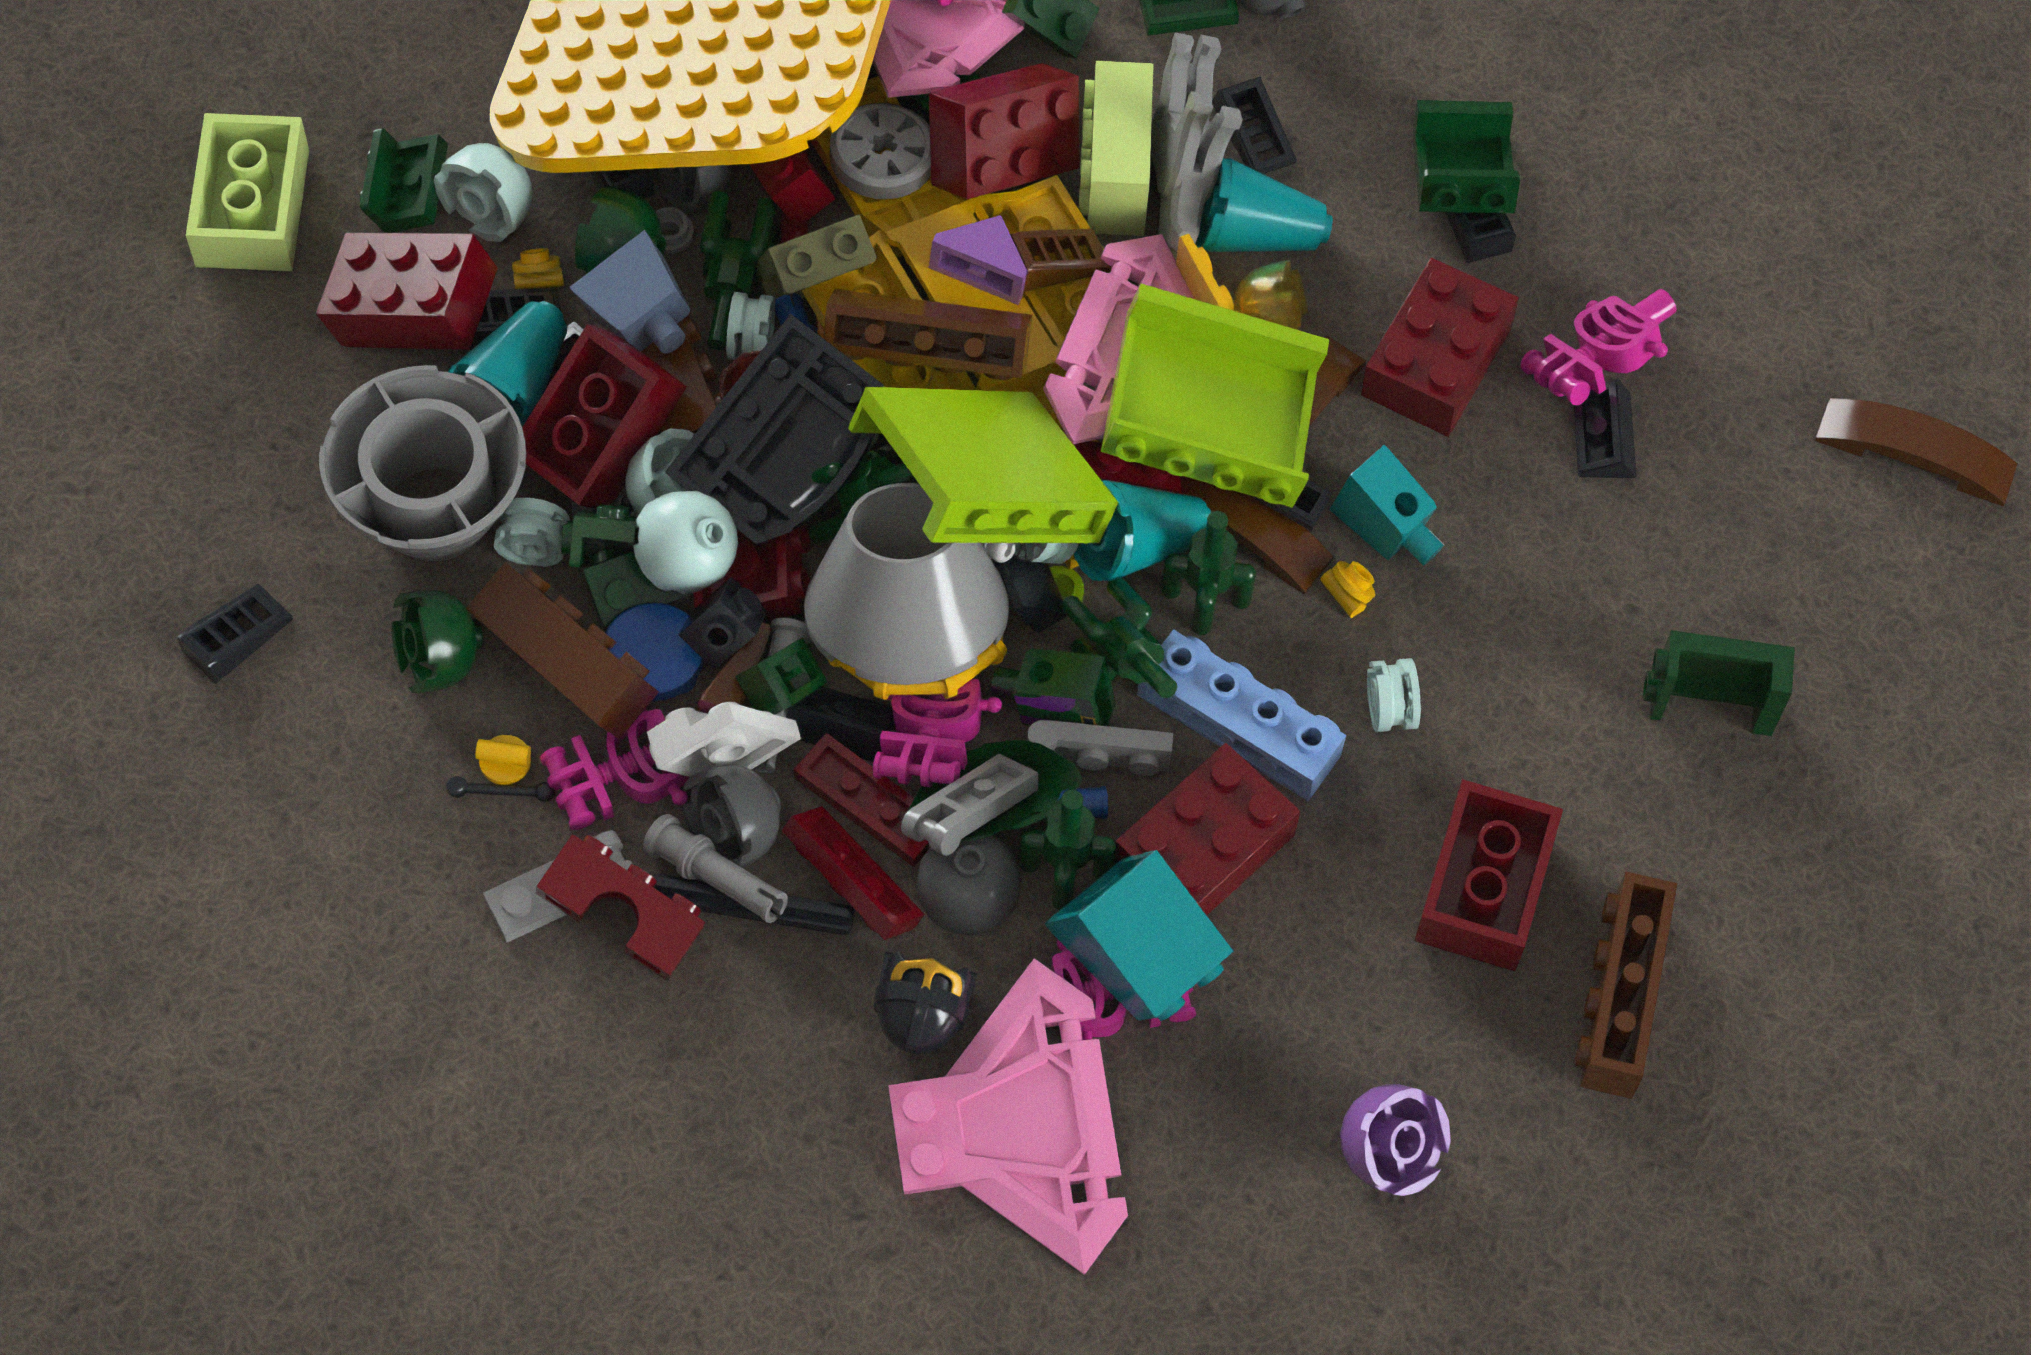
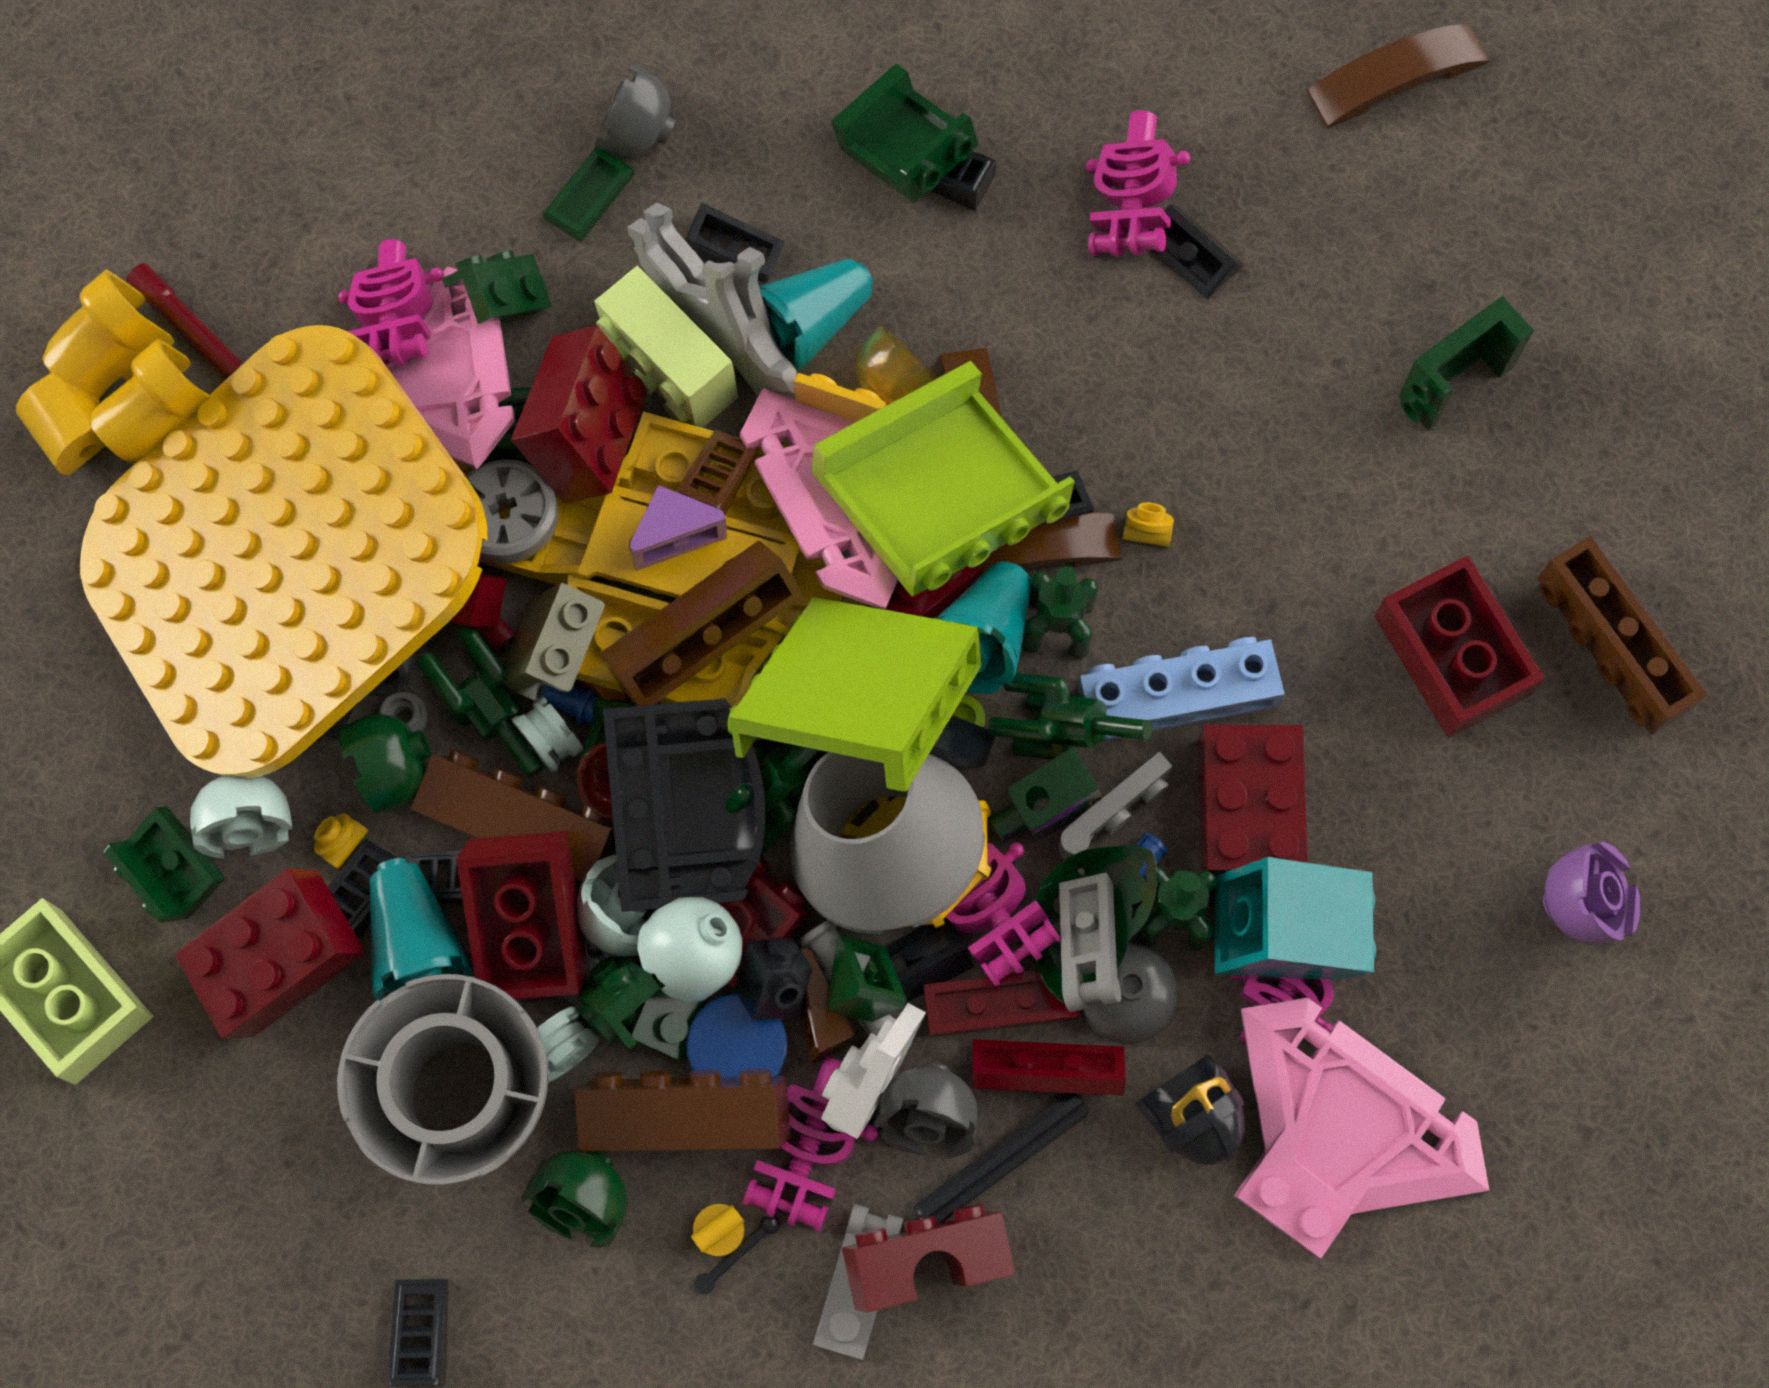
camera: 40 degrees left, 10 degrees up
(636, 296) = (455, 796): sand blue torso -> none
(697, 858) = (936, 1167): light grey pin -> none
(1388, 508) = (1124, 445): teal torso -> none
(1391, 692) = (1265, 578): light aqua wheel -> none
(1439, 346) = (1031, 292): dark red brick -> none

